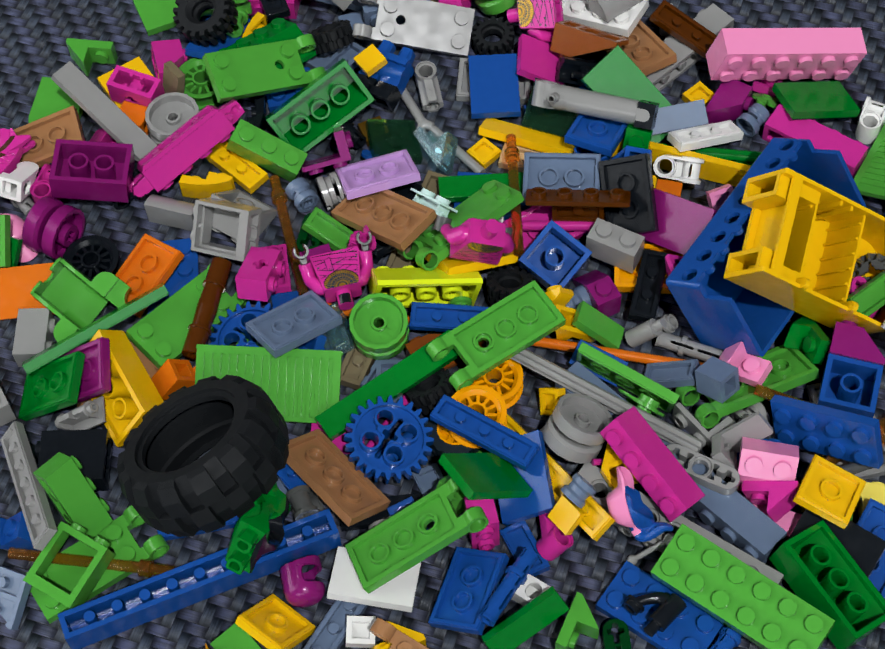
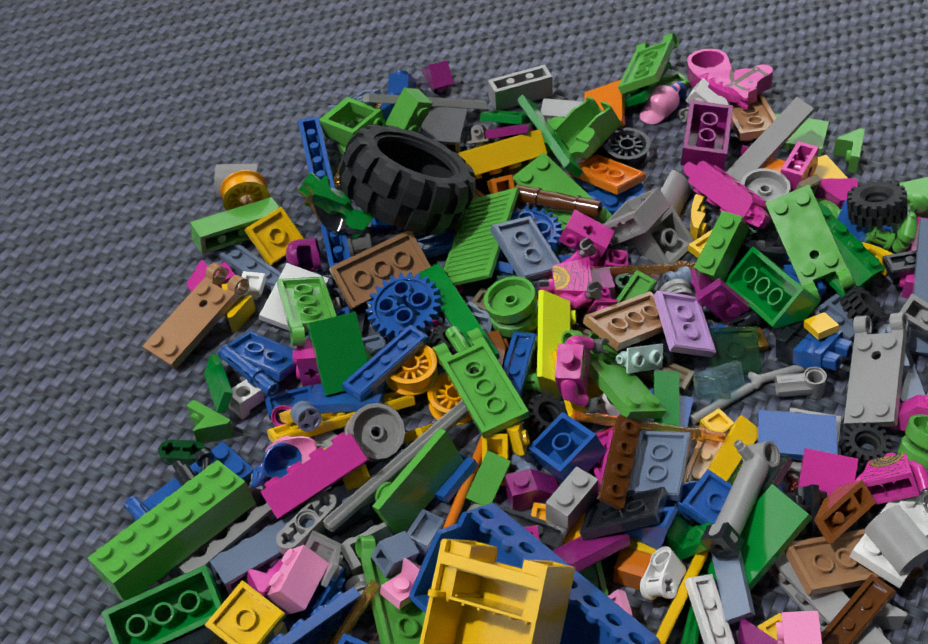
camera: 100 degrees right, 10 degrees down
(52, 227) = (657, 117): magenta wheel -> none
(439, 369) = (456, 339): none -> bright green piece

